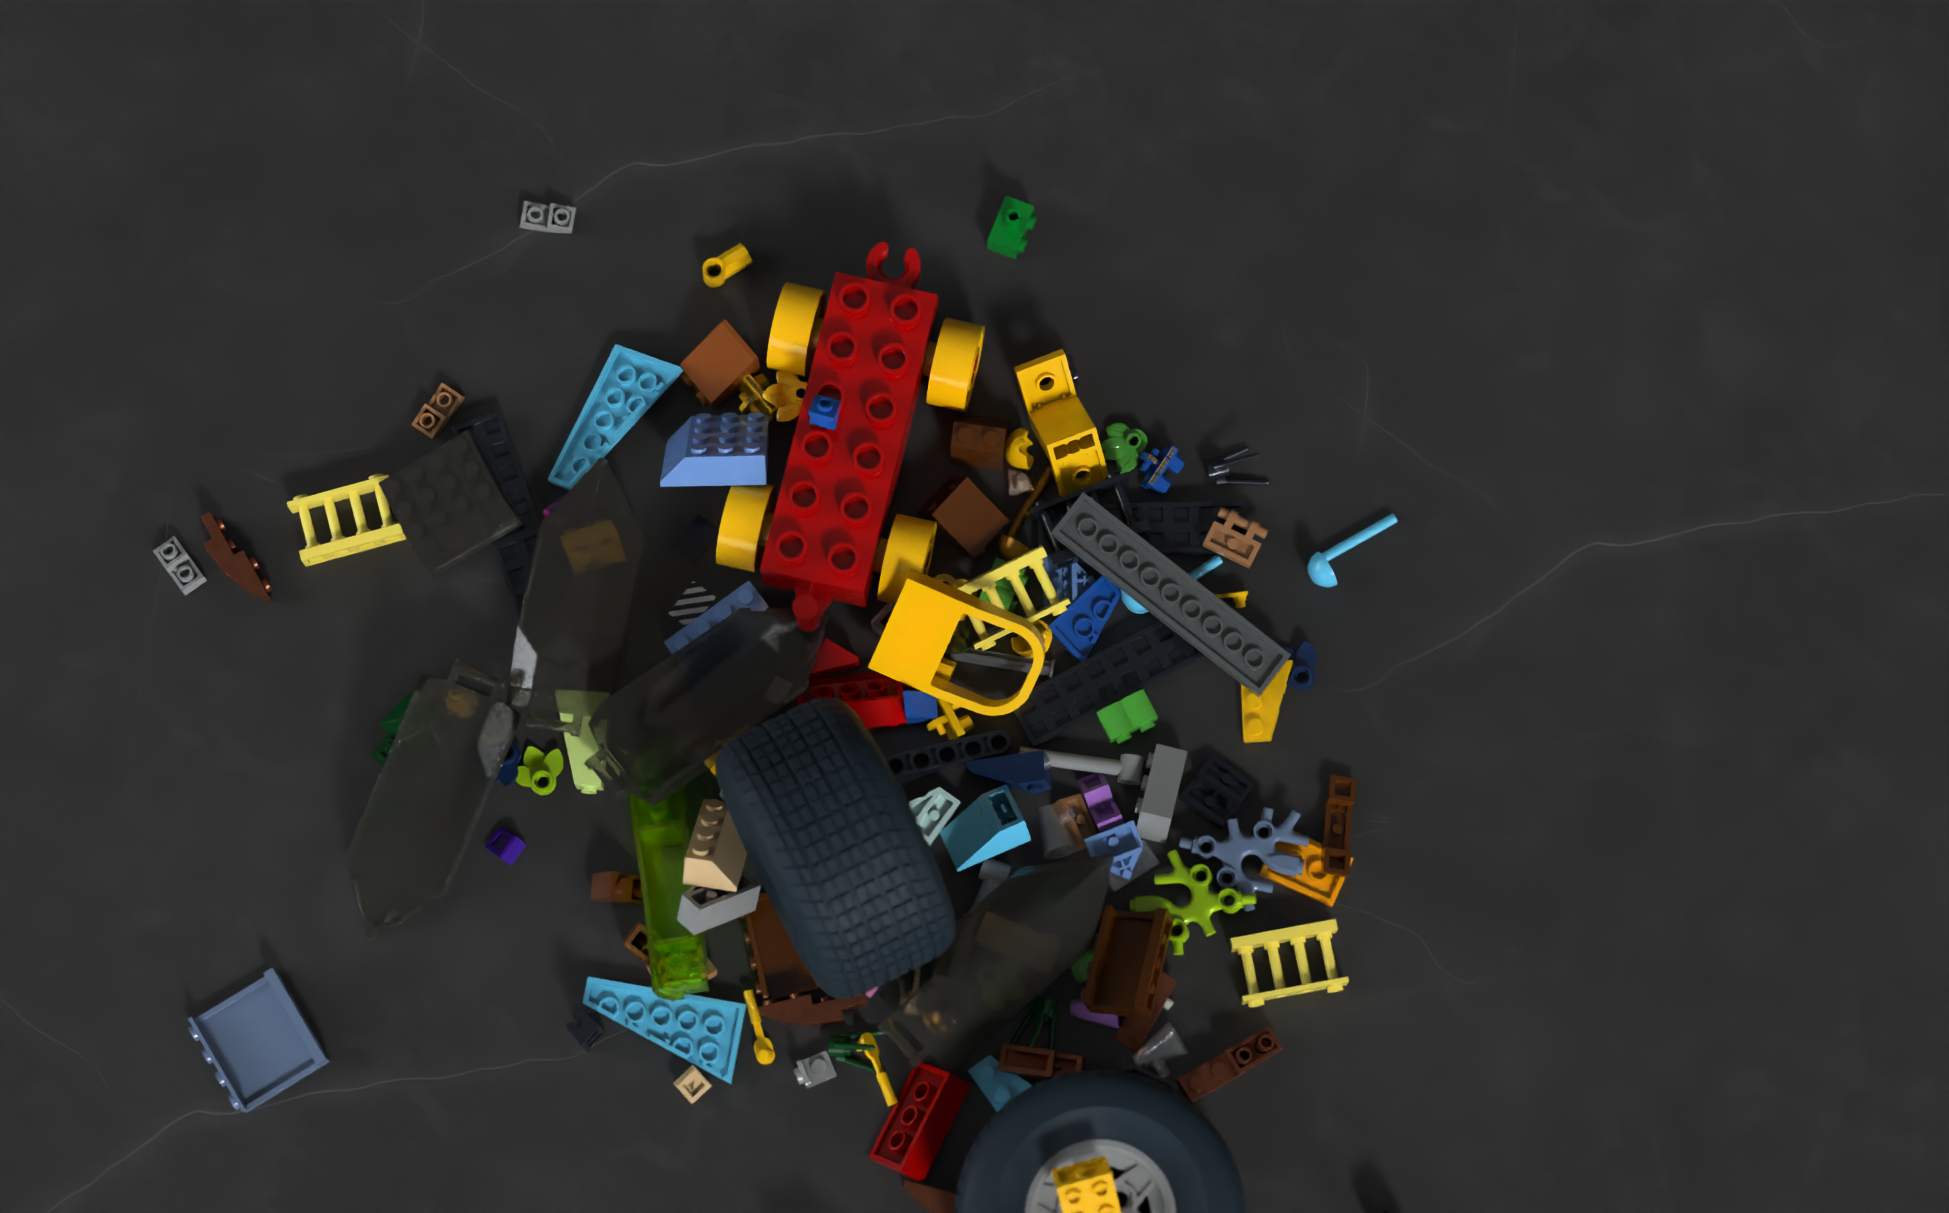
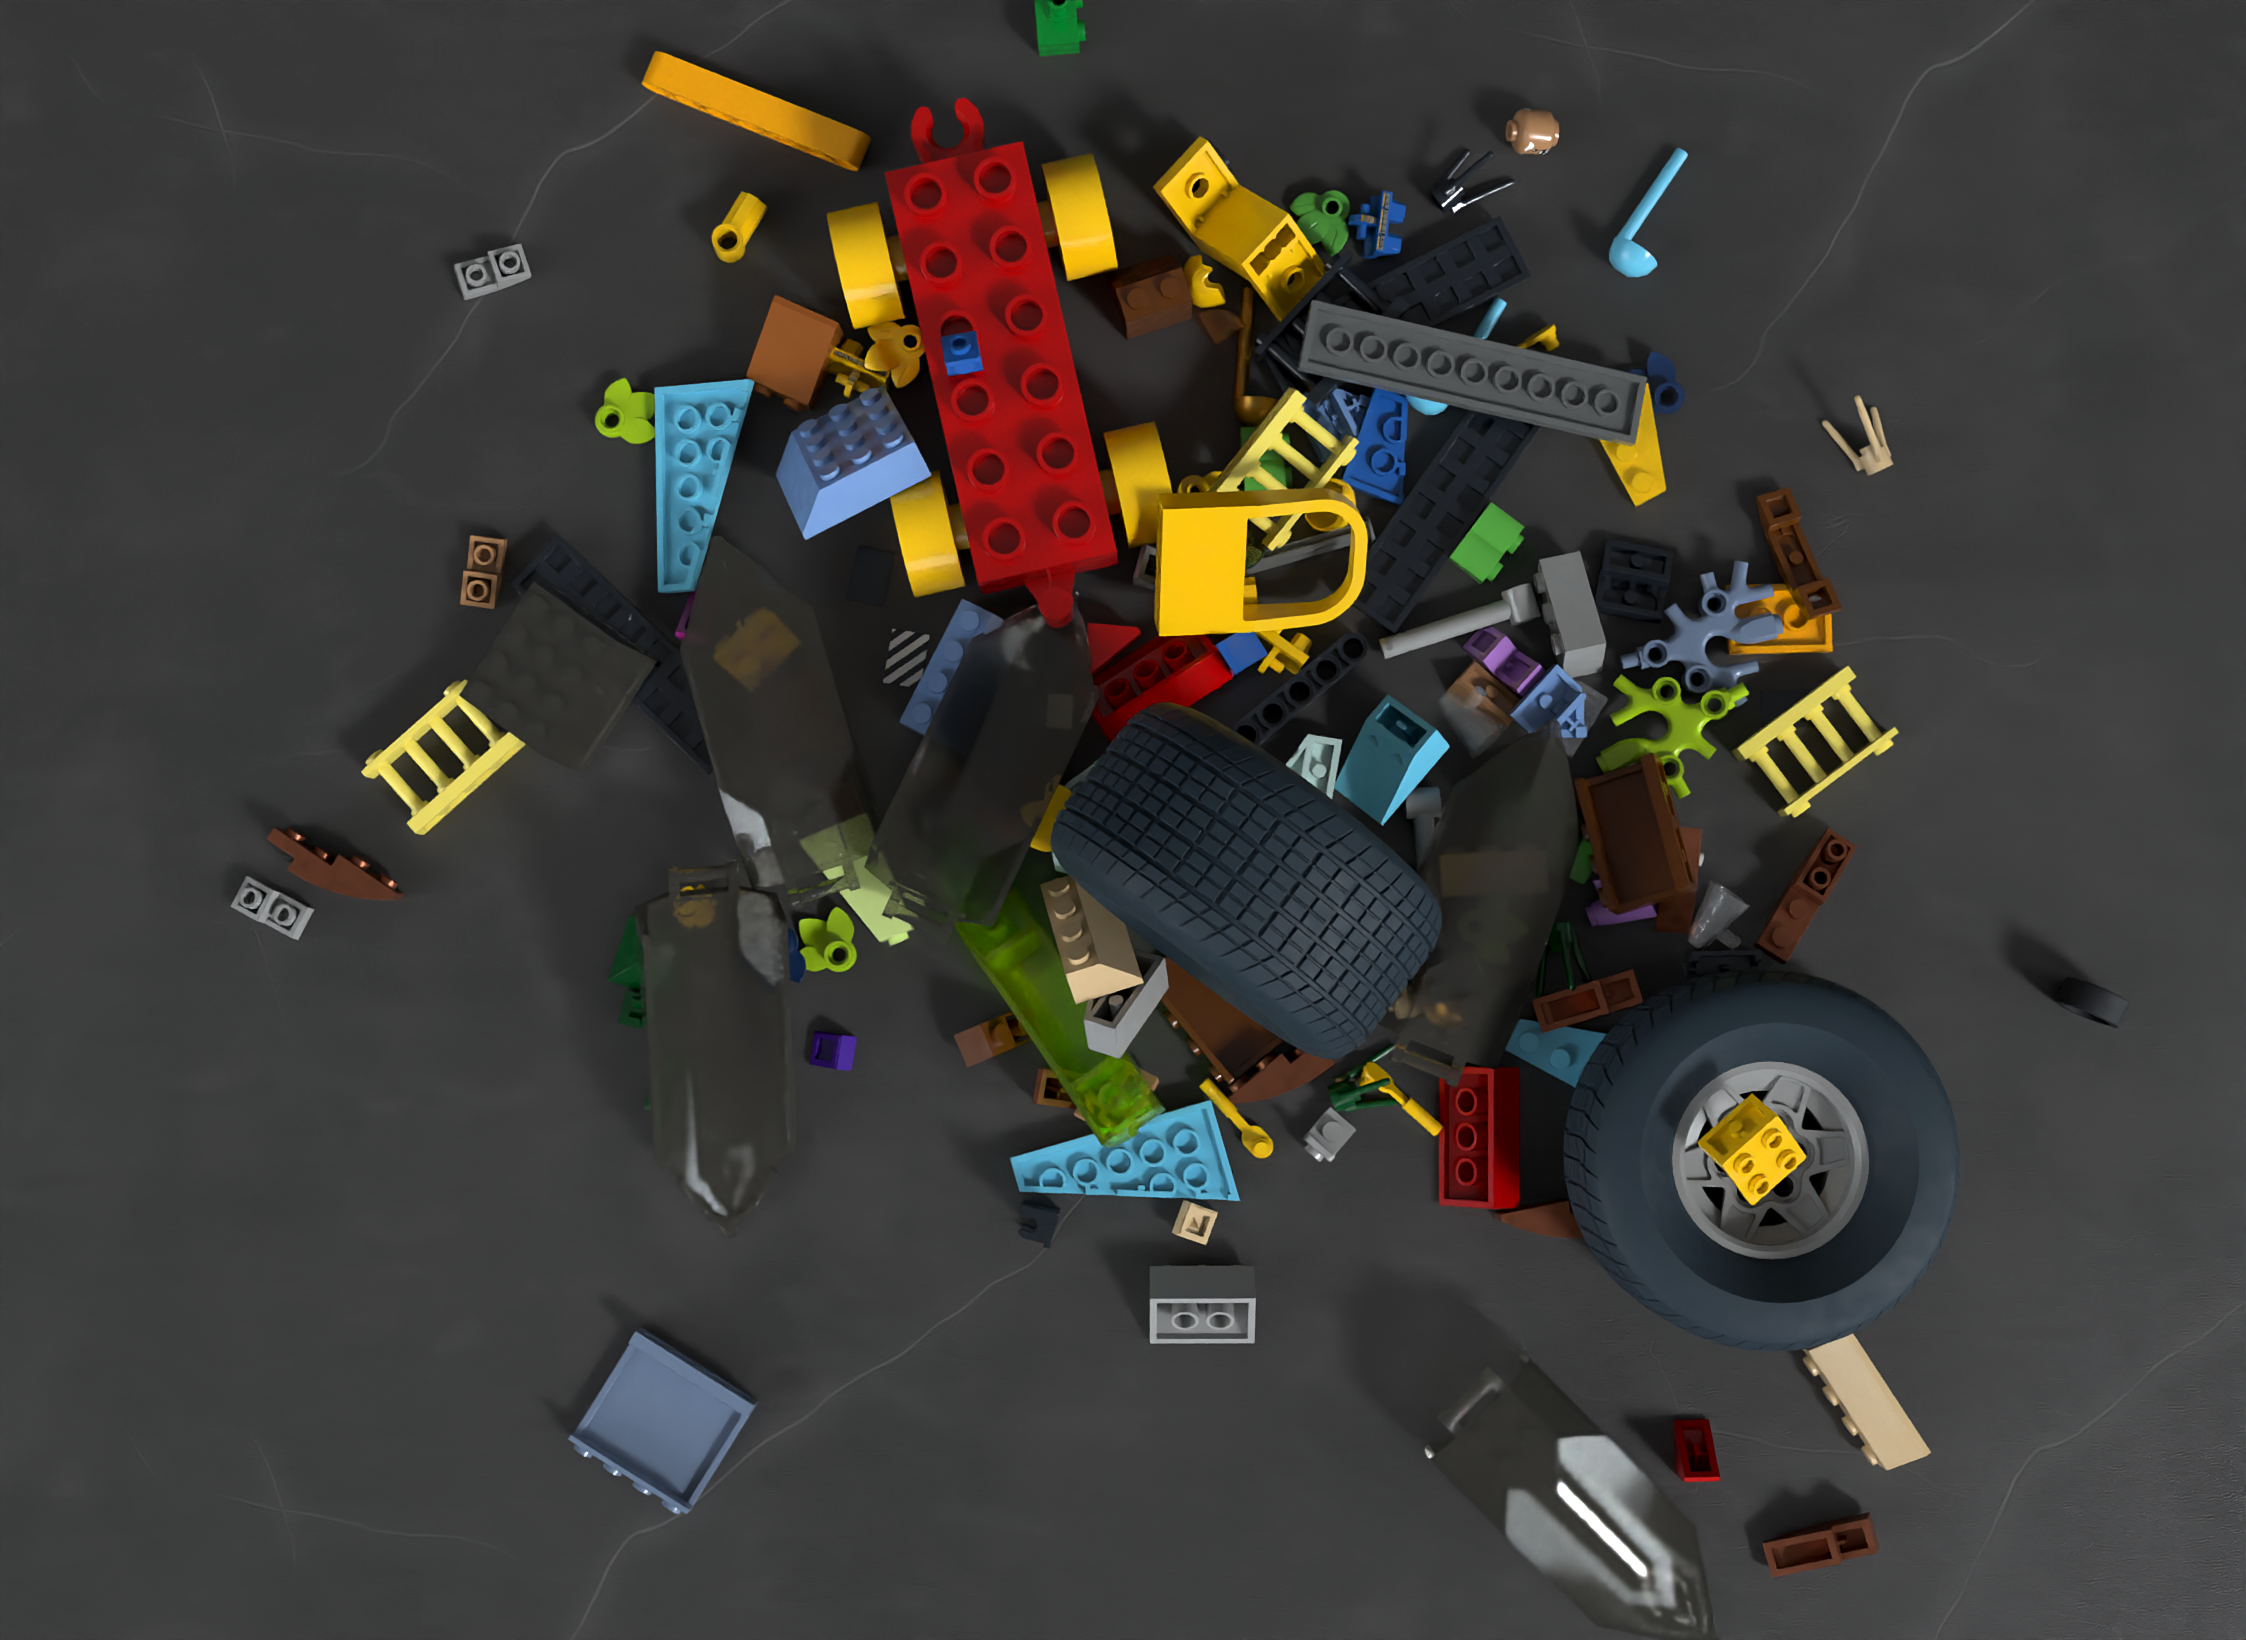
camera: 20 degrees left, 10 degrees up
(592, 352) = (632, 410): none -> lime plate
(668, 1143) = (1202, 1304): none -> light grey slope
(777, 195) = (756, 111): none -> light orange beam
(964, 516) = (1176, 395): reddish brown slope -> none
(1022, 771) = (1397, 671): dark blue slope -> none
(1233, 544) = (1511, 276): medium nougat plate -> none
(1296, 455) = (1532, 131): none -> medium nougat head
(1425, 786) = (1875, 456): none -> tan plant

